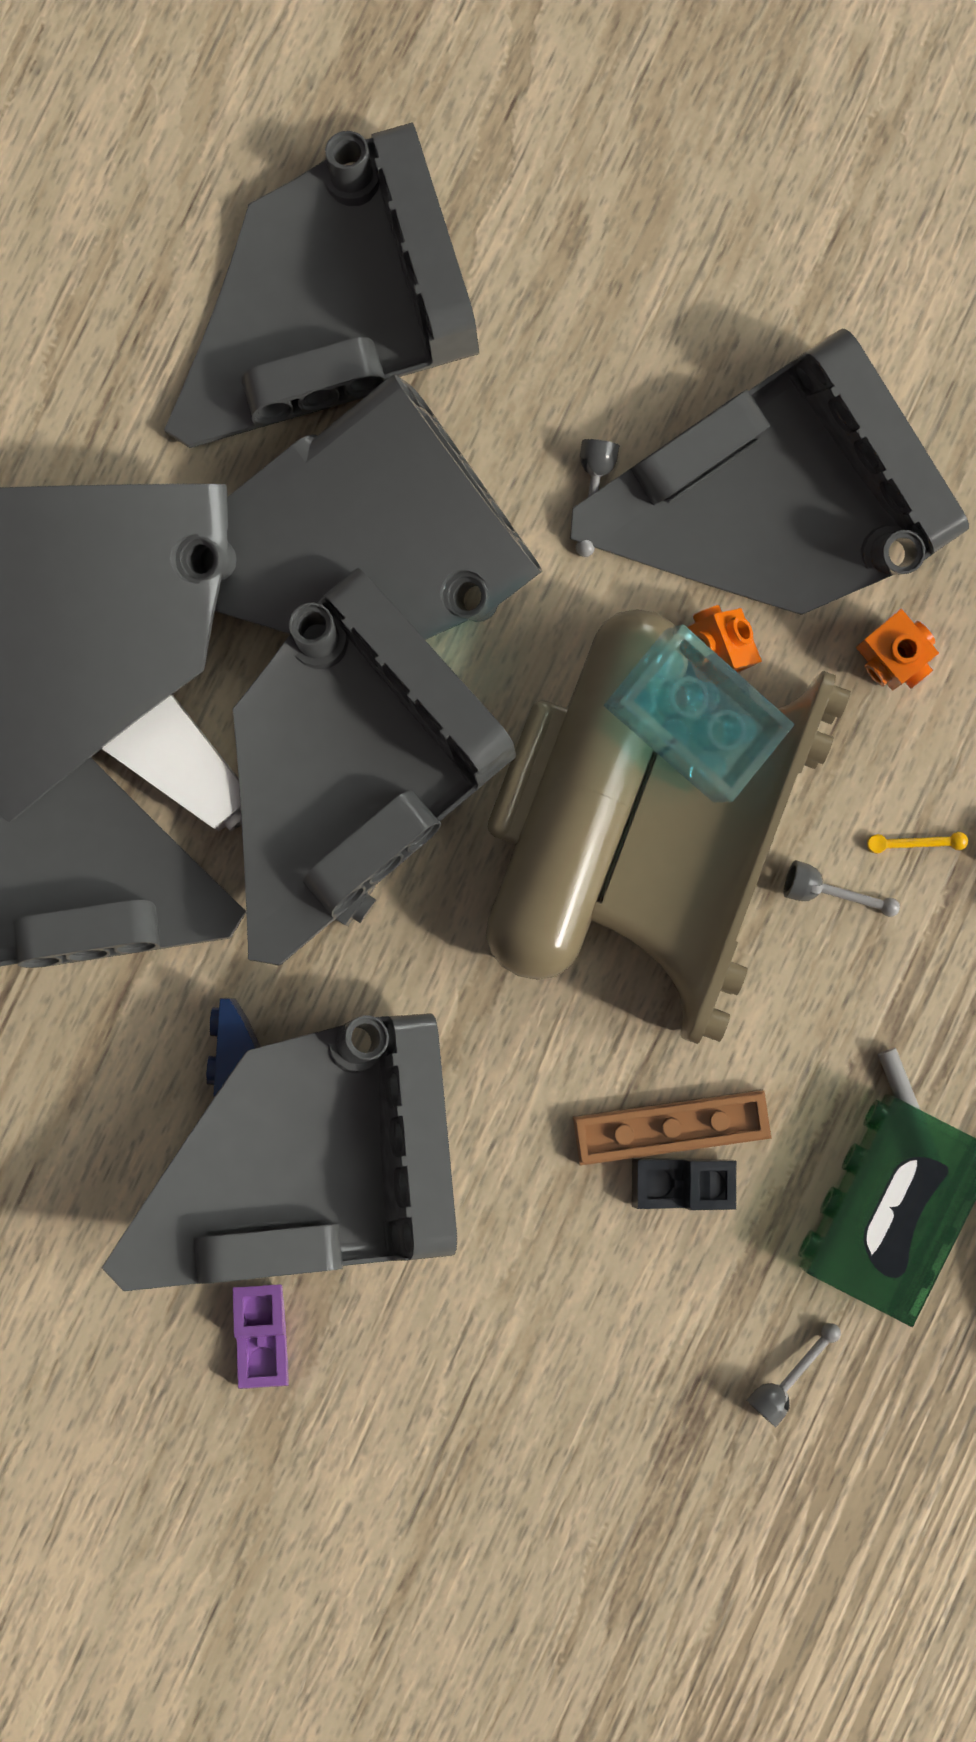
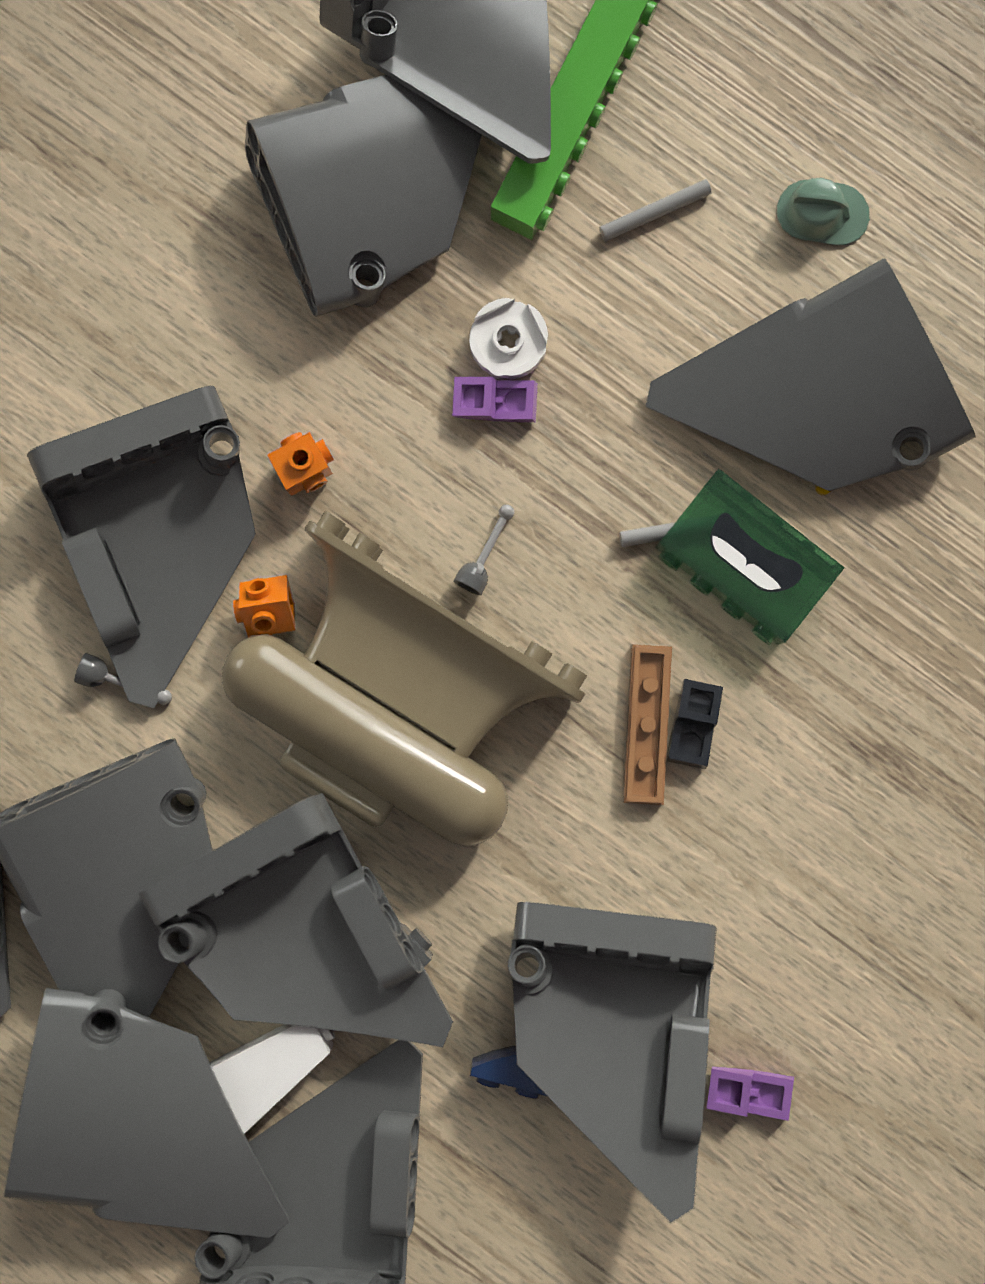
camera: 80 degrees left, 0 degrees up
(699, 714) = (317, 640): clear light blue brick -> none
(772, 1399) = (879, 688): hinge -> none
(878, 843) = (454, 511): yellow hinge -> none

